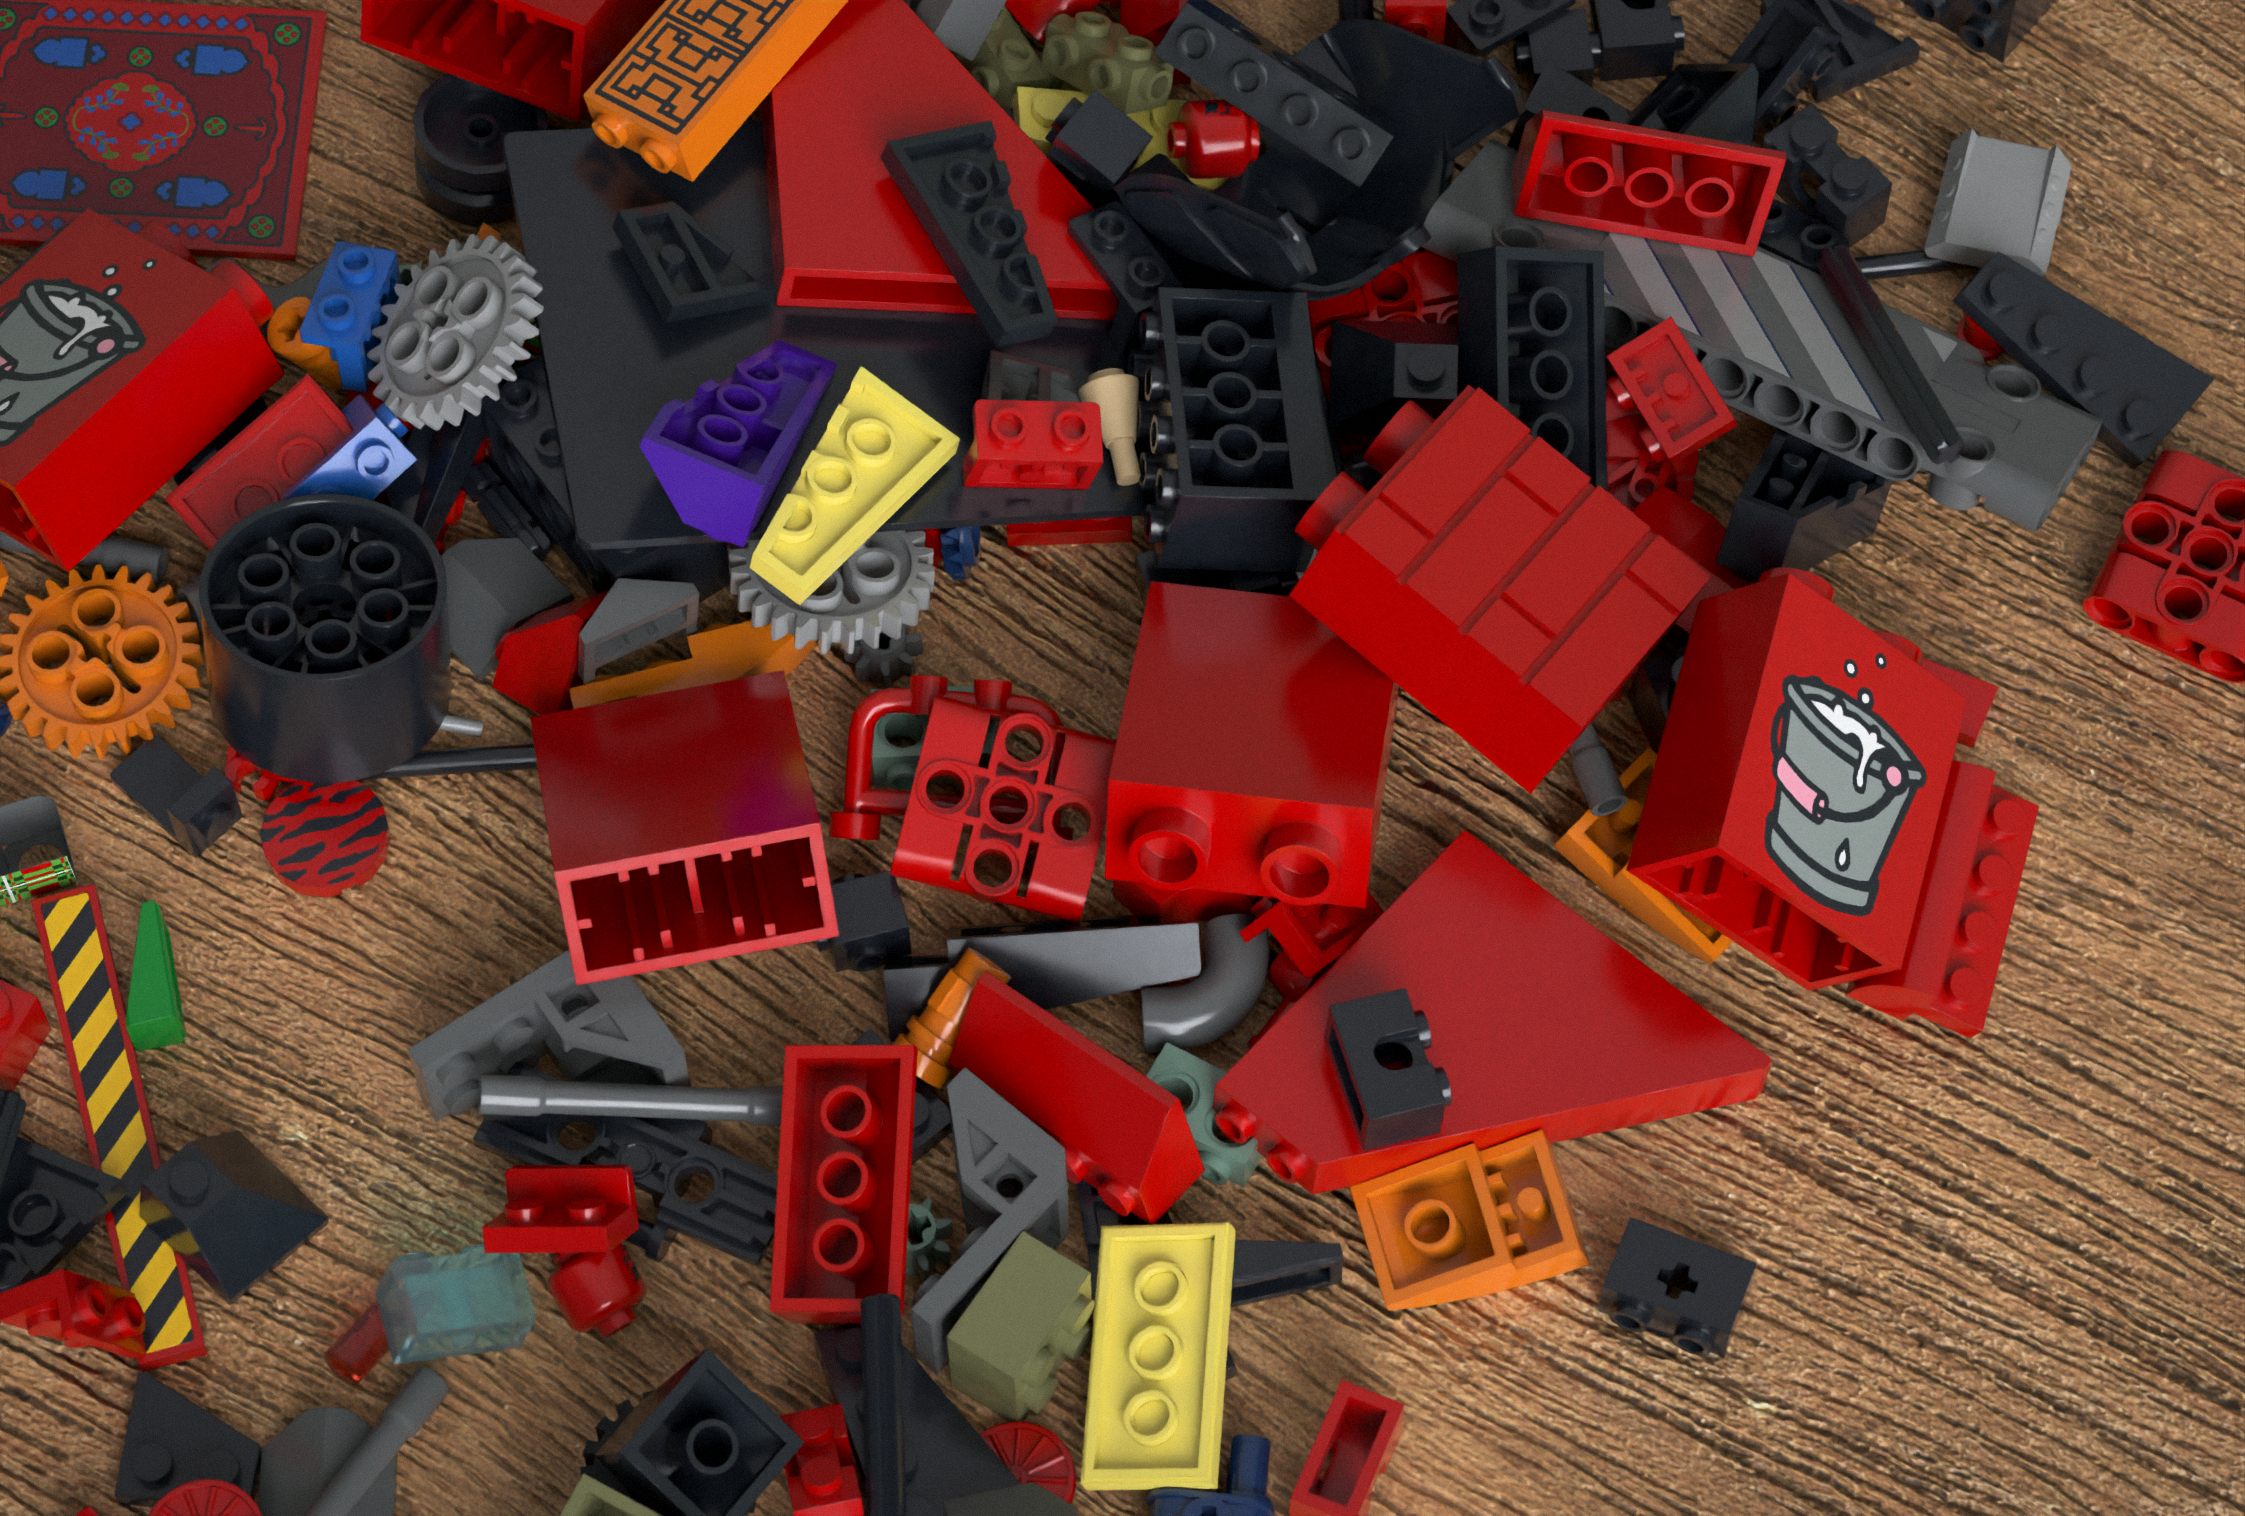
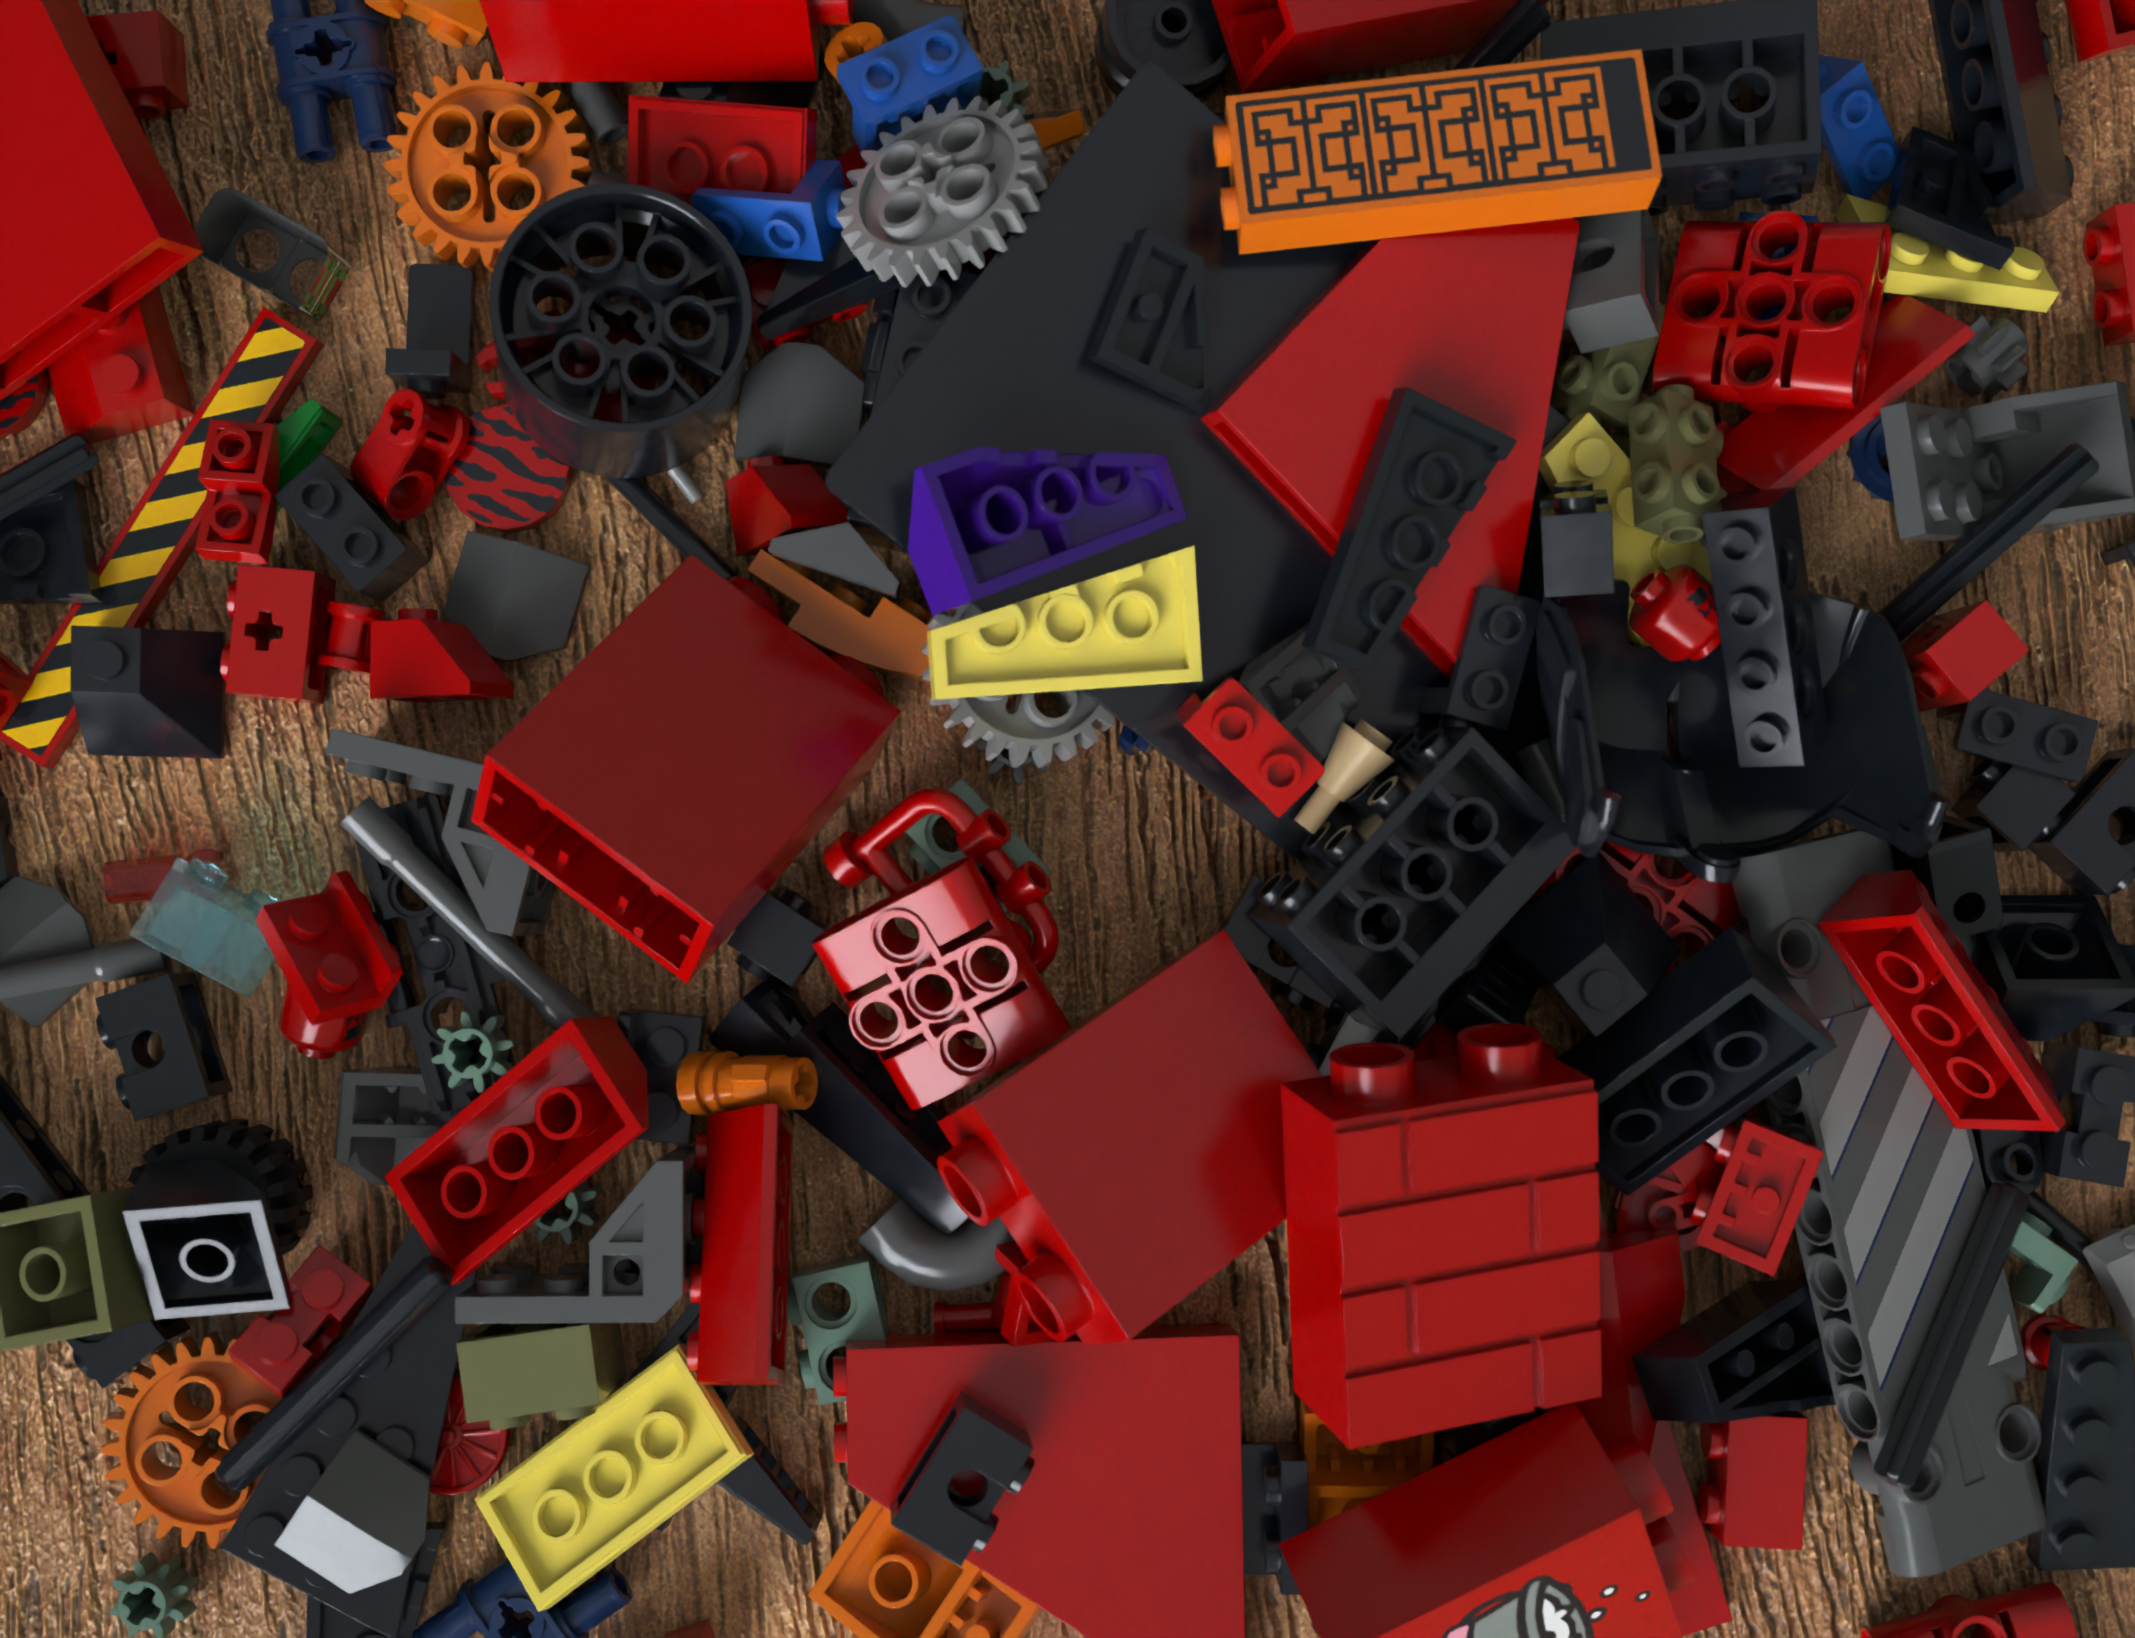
camera: 50 degrees right, 25 degrees up
(160, 999) = (241, 483): none -> red slope
(252, 883) = (405, 456): none -> red piece
(260, 966) = (351, 528): none -> black brick
(315, 1099) = (284, 667): none -> red brick
(337, 1039) = (349, 637): none -> red bush
(419, 906) = (515, 596): none -> dark grey slope
(420, 985) = (431, 662): none -> red slope
(481, 1404) = (192, 1059): none -> black brick
(730, 1310) = (383, 1119): none -> dark grey slope
(737, 1143) = (457, 1053): none -> sand green gear
(1634, 914) = (1273, 1506): none -> black bracket
(1898, 582) = (1755, 1481): none -> red brick
(1907, 285) = (2046, 1266): none -> sand green bracket

